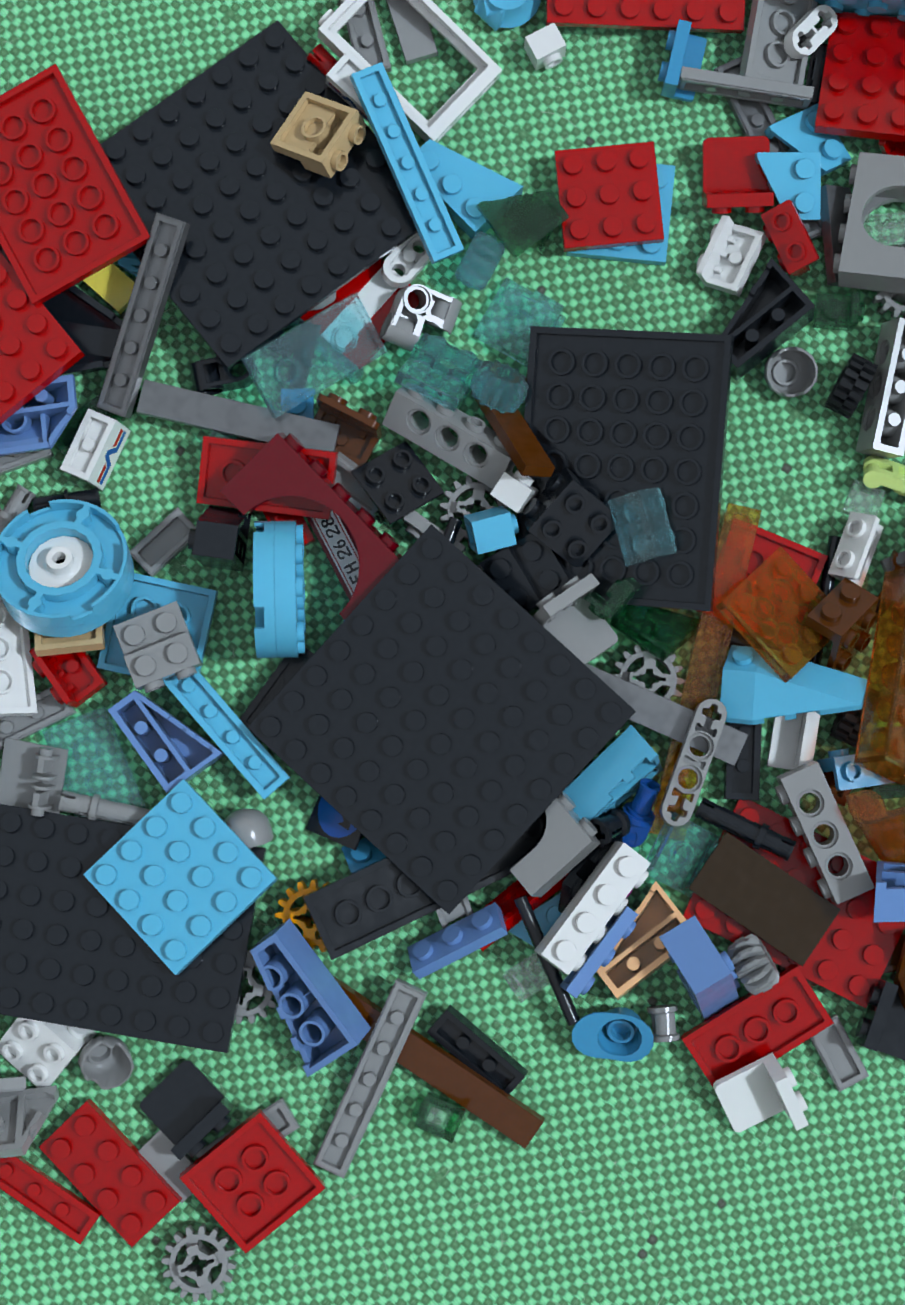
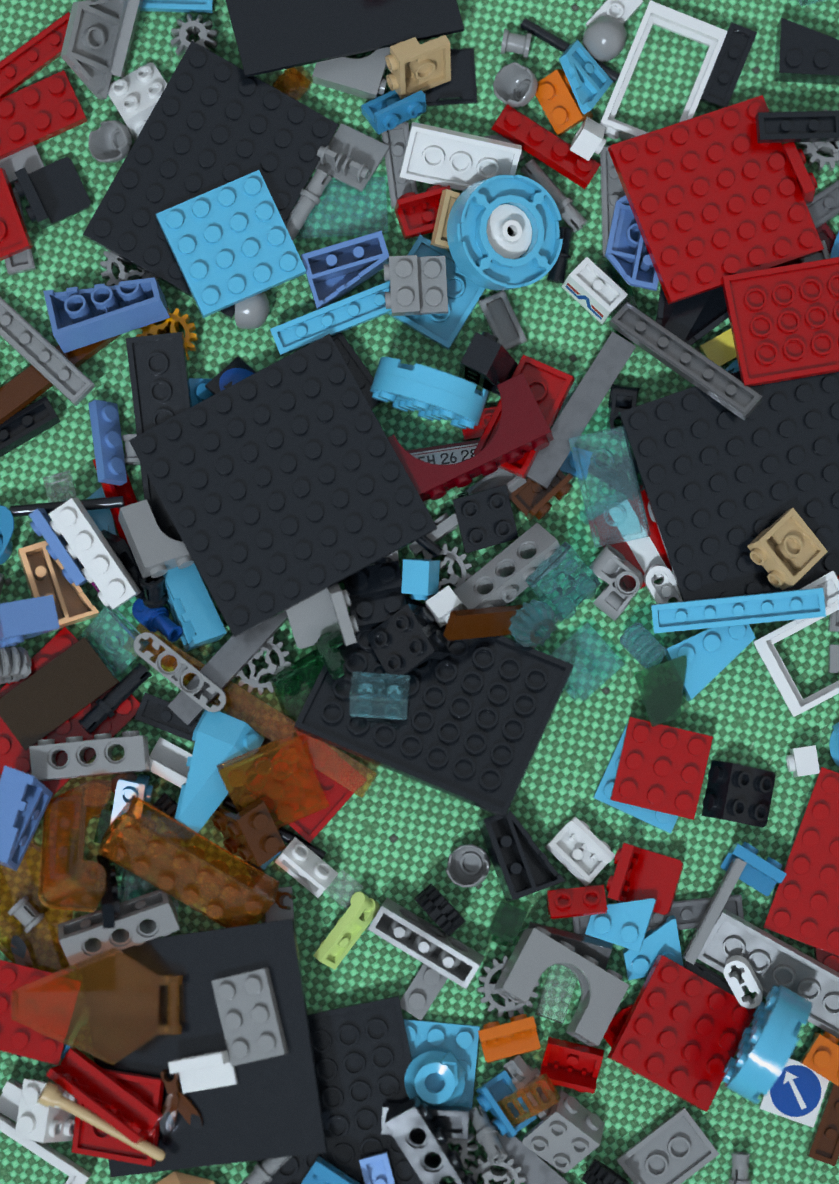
camera: 105 degrees right, 0 degrees up
(606, 107) = (738, 793): none -> black bracket

